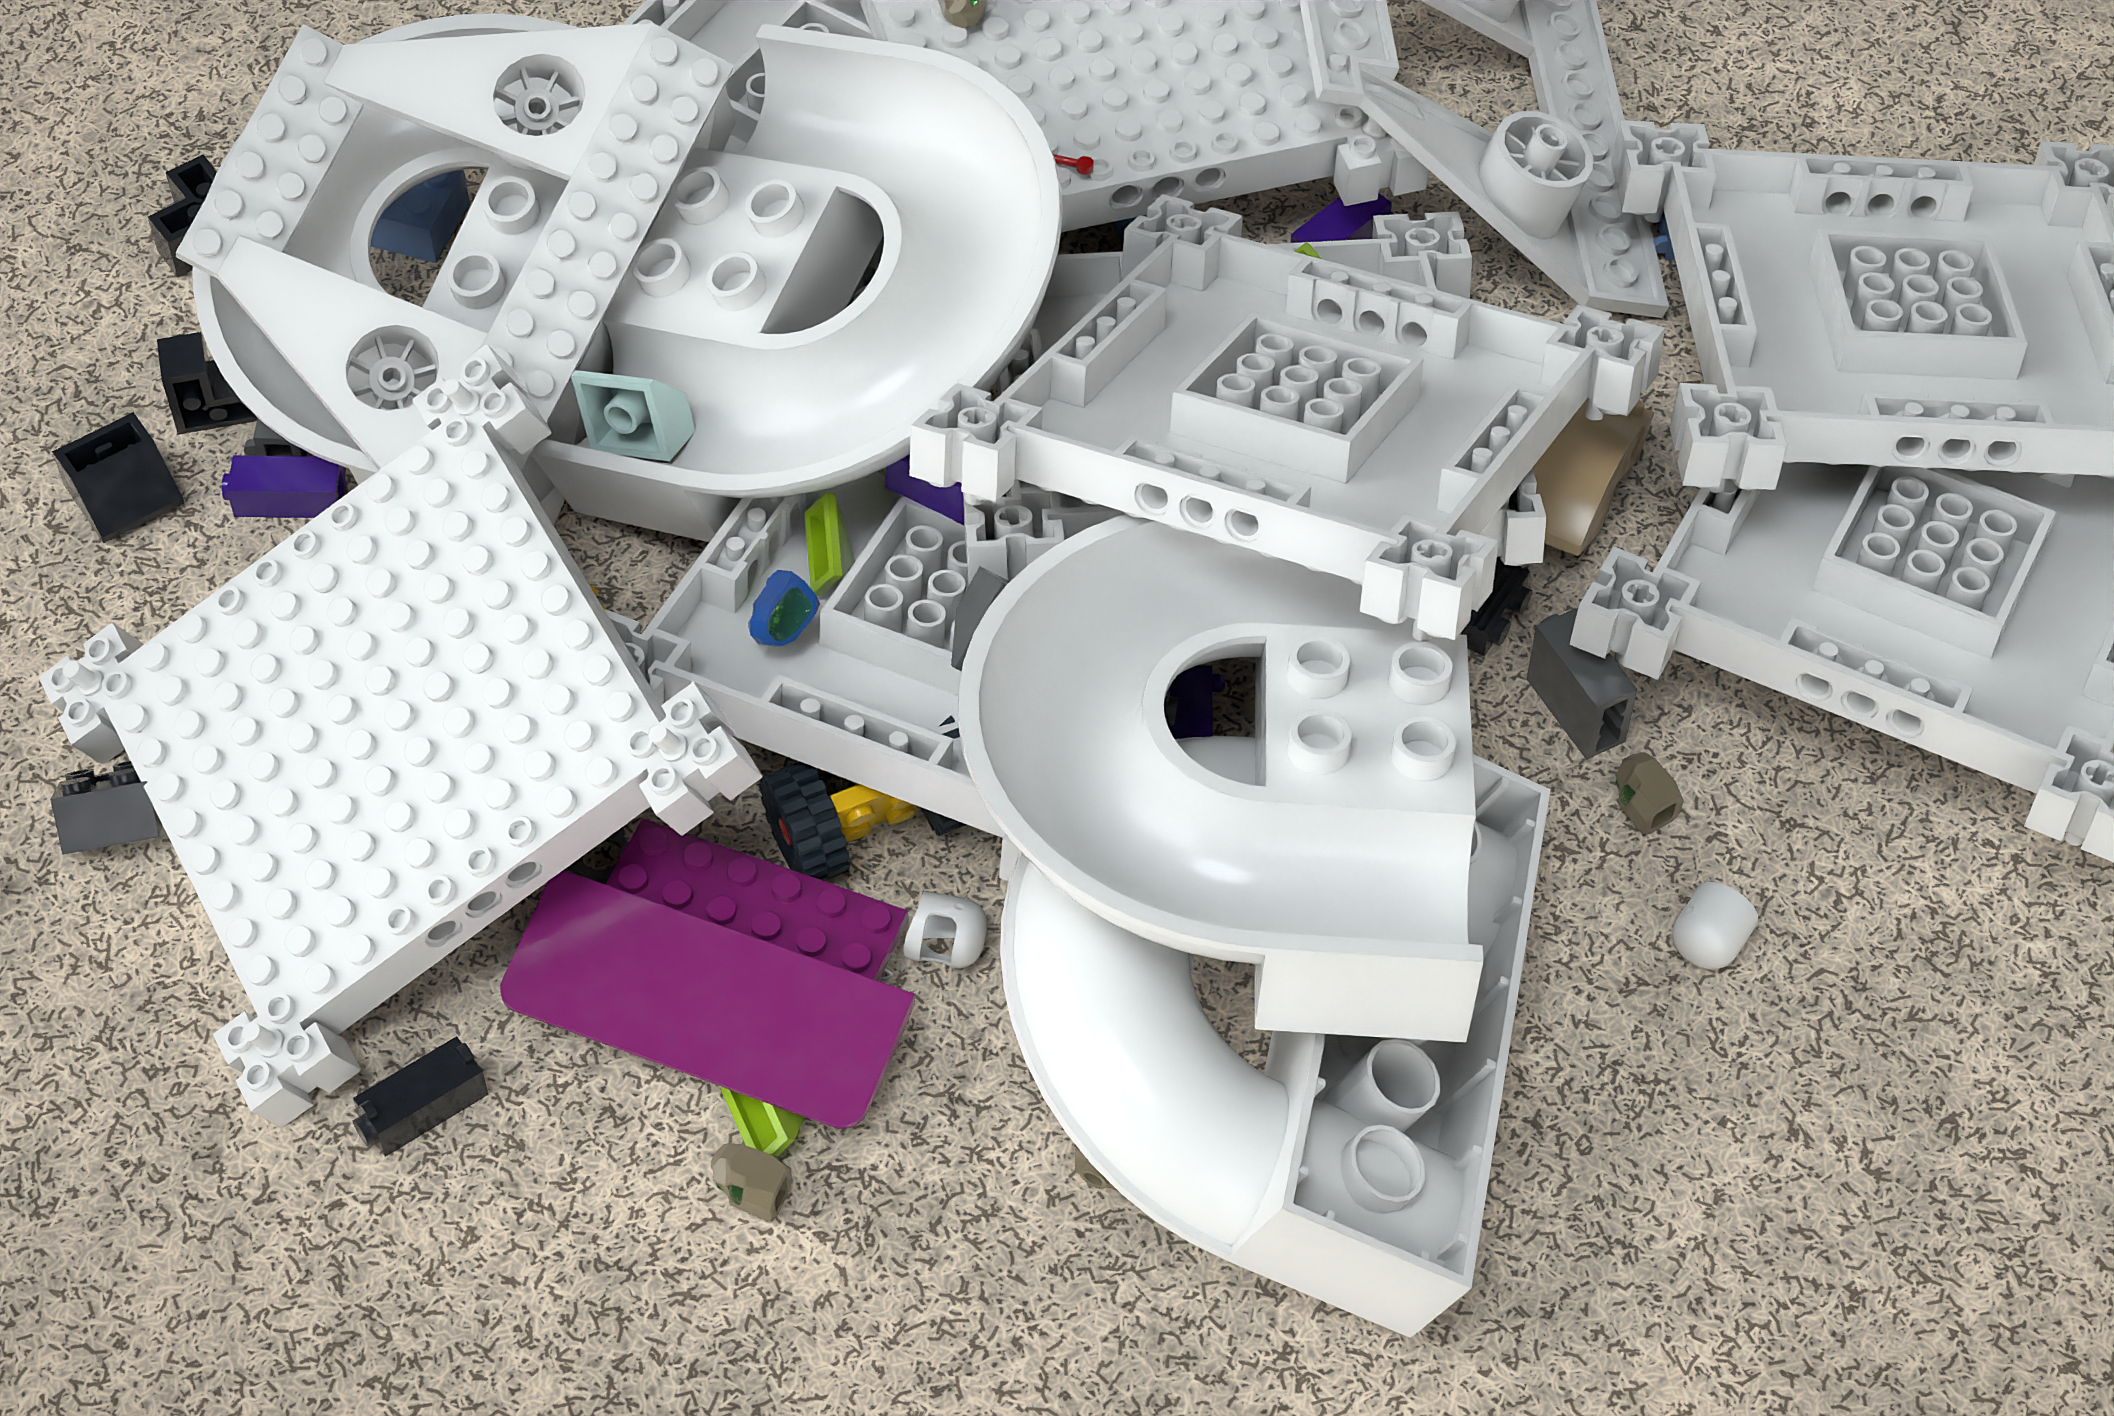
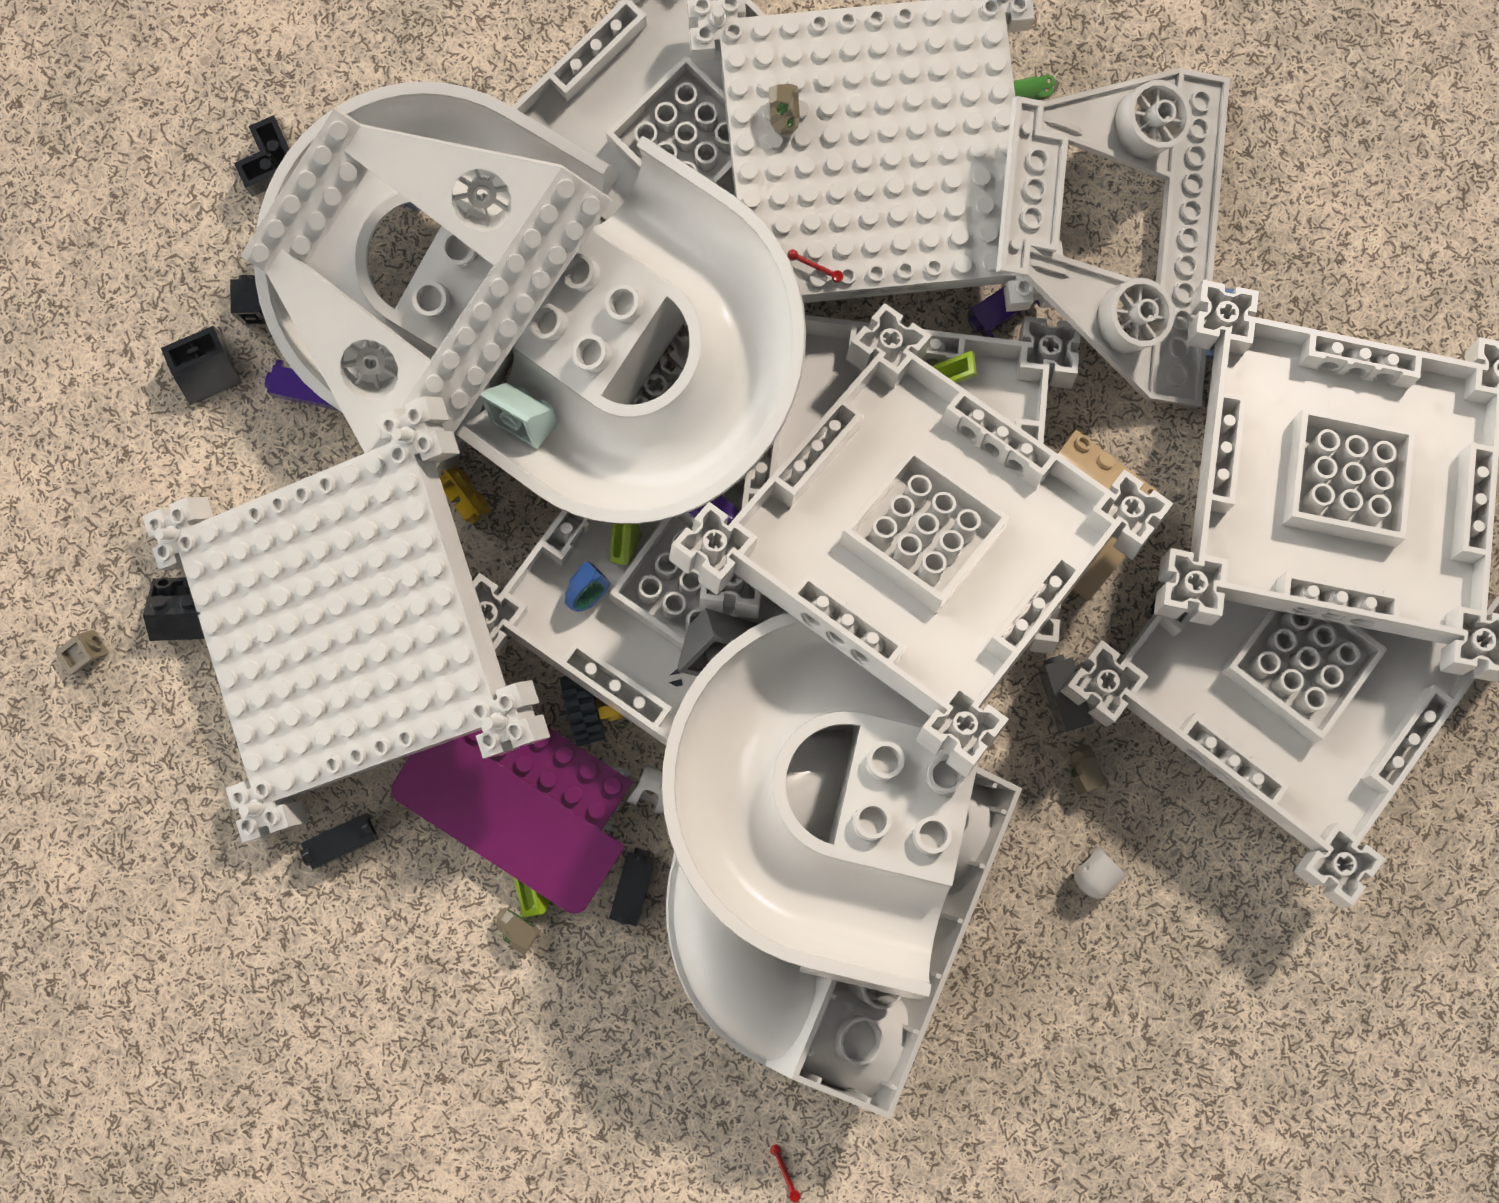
camera: 10 degrees right, 30 degrees up
(938, 1081) = (632, 887): none -> black brick

